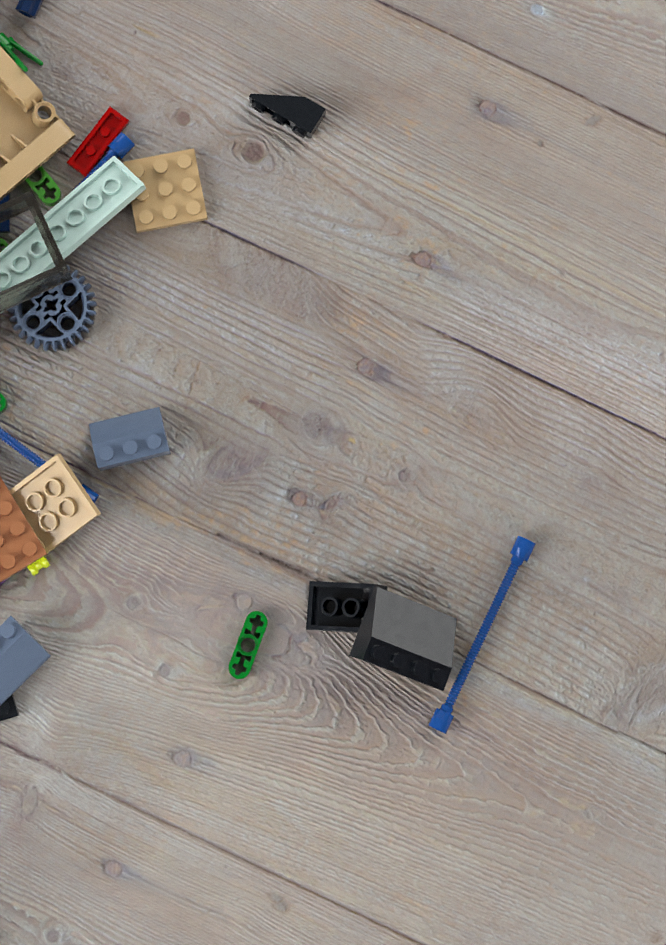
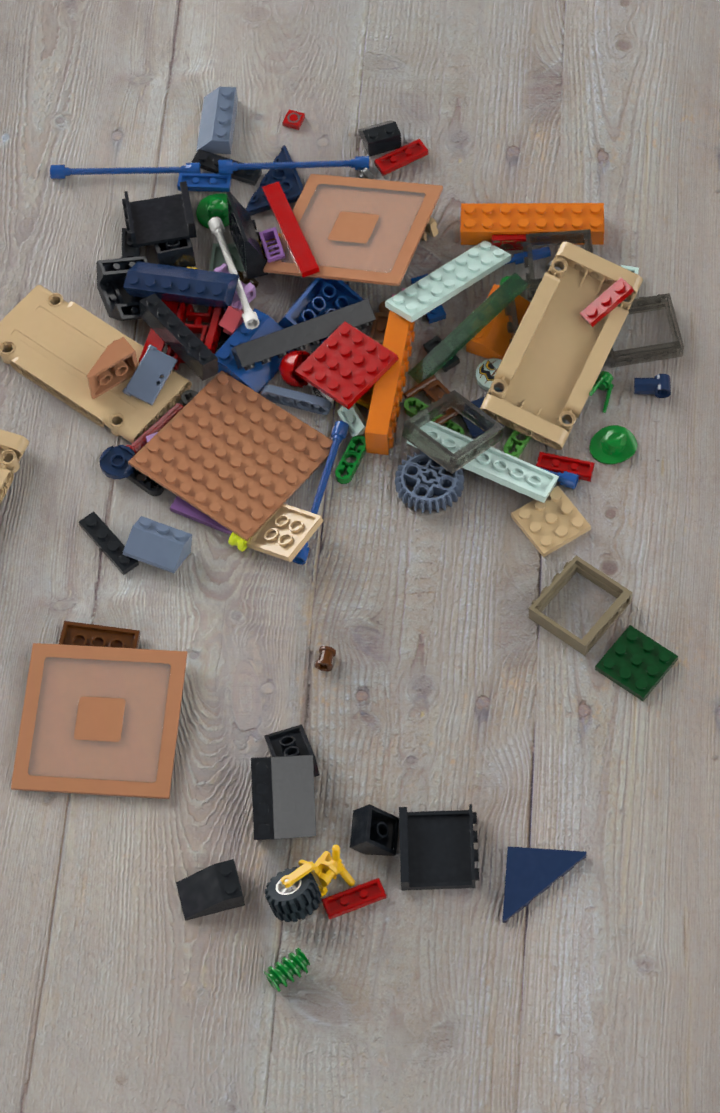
camera: 75 degrees right, 25 degrees down
(93, 74) = (613, 445): none -> green hat
(105, 779) = (97, 635): none -> reddish brown plate
(129, 439) = (354, 565): sand blue slope -> none
(210, 811) = (100, 721): none -> baseplate
(239, 521) = (325, 658): none -> reddish brown bush
(248, 625) = (221, 706): green beam -> none
(294, 111) = (652, 579): black slope -> none
(306, 151) = (623, 596): none -> dark tan window
(390, 176) = (636, 663): none -> dark green plate
(478, 762) = (210, 890): none -> black slope
(482, 553) = (374, 831): none -> black slope
(521, 552) = (387, 860): blue hose -> none
(526, 668) = (295, 891): none -> piece
(529, 490) = (438, 849): none -> black panel
(549, 605) = (354, 898): none -> red tile
(598, 400) = (532, 872): none -> dark blue tile
(609, 711) = (287, 969): none -> green piece

